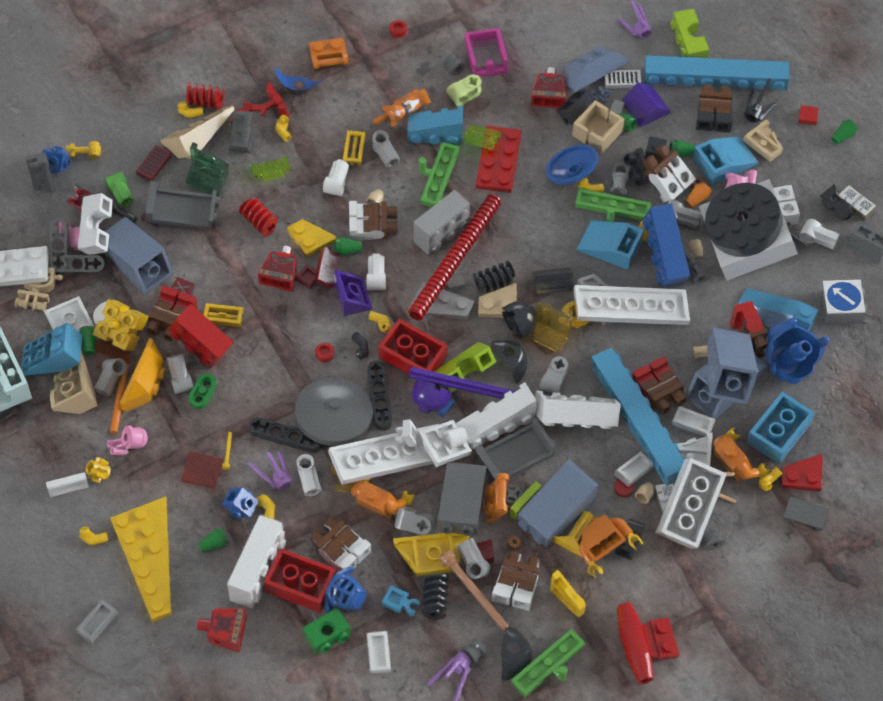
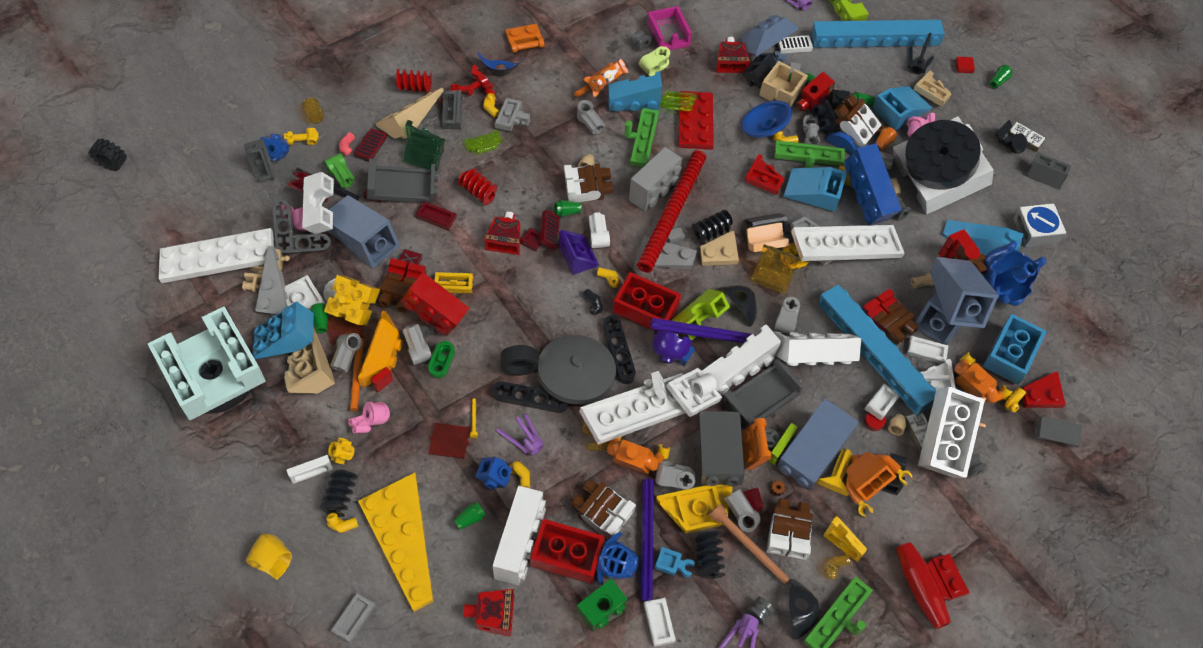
camera: 10 degrees left, 0 degrees up
(25, 559) = (269, 555): none -> yellow piece
(43, 309) = (272, 288): none -> light grey wing
(91, 507) = (337, 492): none -> black piece
(97, 121) = (313, 110): none -> clear yellow brick
(127, 160) = (344, 144): none -> coral arm
(143, 405) = (382, 379): none -> red tile
(188, 112) = (400, 97): yellow arm -> none
(213, 244) = (436, 216): none -> dark red tile
(277, 397) = (519, 360): none -> black tyre
(302, 141) = (511, 114): none -> light grey hinge
(308, 475) = (560, 438): white piece -> none
(310, 237) = (529, 203): yellow wing -> none
(324, 352) = (558, 311): red tile -> none
(335, 182) = (547, 149): white piece -> none
(352, 160) = (559, 129): yellow tile -> none
(378, 578) = (647, 540): none -> dark purple axle
(398, 29) = (585, 14): red tile -> none
(520, 318) = (745, 263): black cylinder -> none
(549, 291) = (766, 234): none -> light nougat panel
(554, 616) = (834, 564): none -> clear yellow arm
(559, 226) = (764, 176): none -> red wing
(631, 137) = (816, 92): none -> red torso
(645, 104) = (817, 61): dark purple slope -> none
(651, 194) = (842, 140): none -> blue tile
(714, 103) = (883, 63): hips -> none
(813, 232) = (1003, 166): white piece -> none

